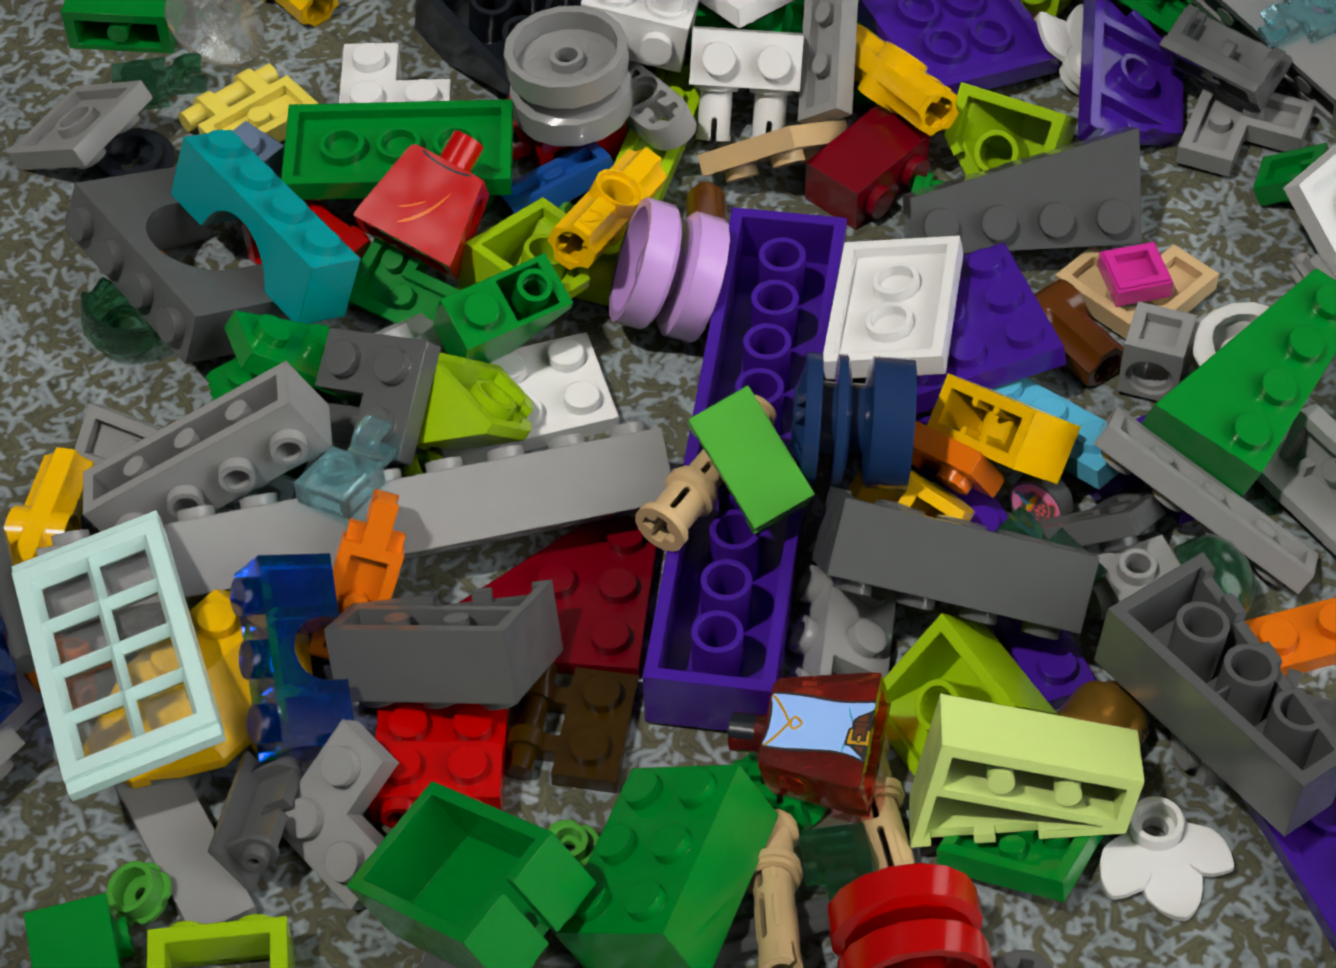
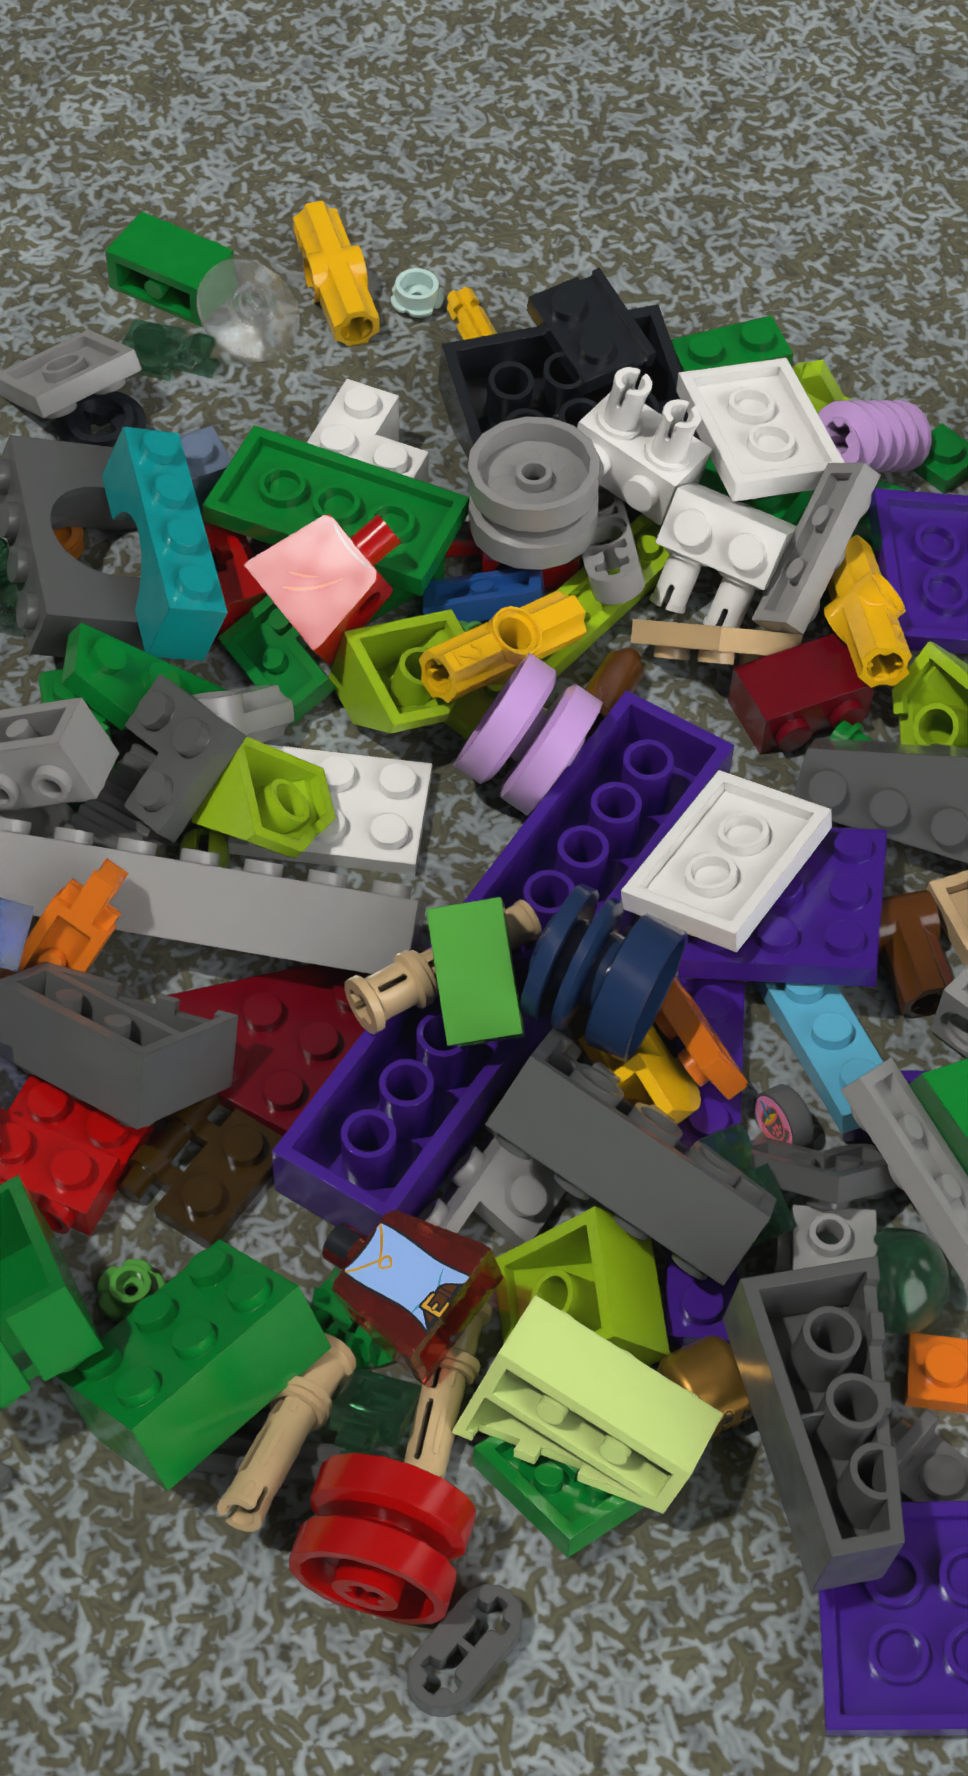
camera: 20 degrees right, 5 degrees up
(253, 98) = (236, 407): light yellow plate -> none
(346, 479) = (89, 834): clear light blue plate -> none
(501, 311) = (341, 716): green slope -> none
(1004, 428) = (766, 1034): yellow brick -> none
(1166, 866) = (700, 1562): white plate -> none

